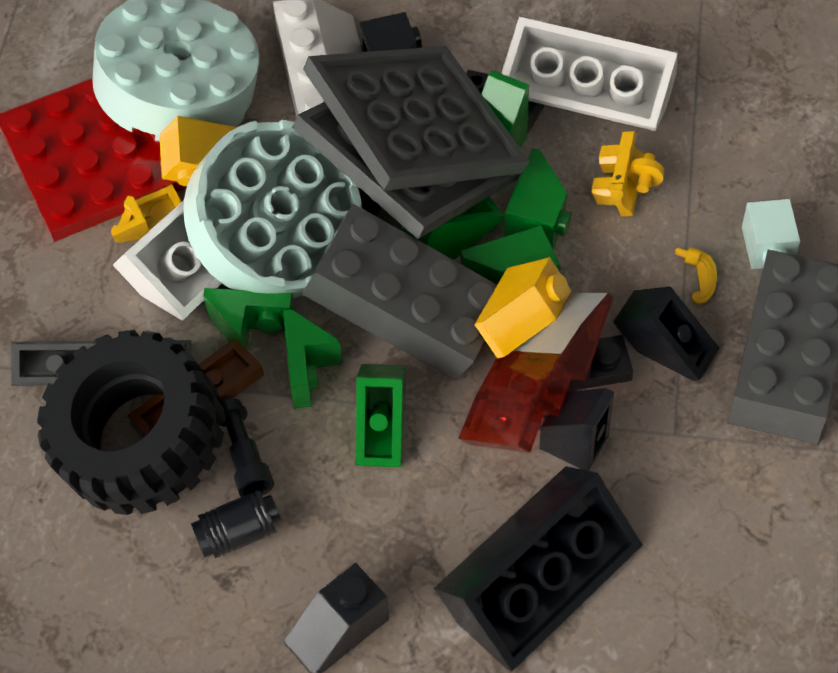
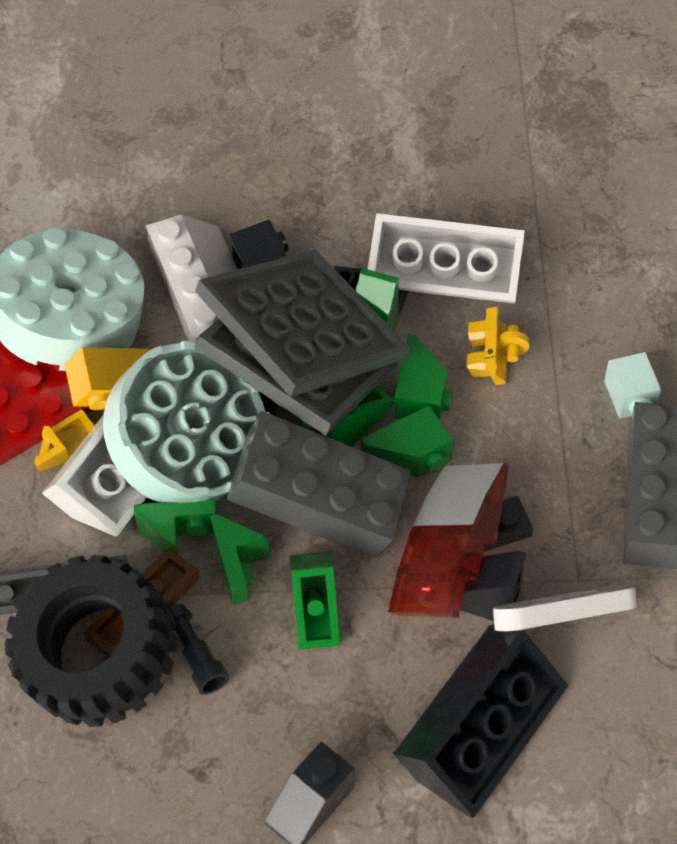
camera: 10 degrees left, 0 degrees up
(236, 524) = (202, 720): black head -> none
(522, 305) = (428, 482): yellow slope -> none
(650, 458) = (564, 607): none -> white beam
(666, 331) = (556, 488): black slope -> none
(705, 272) = (580, 428): yellow piece -> none

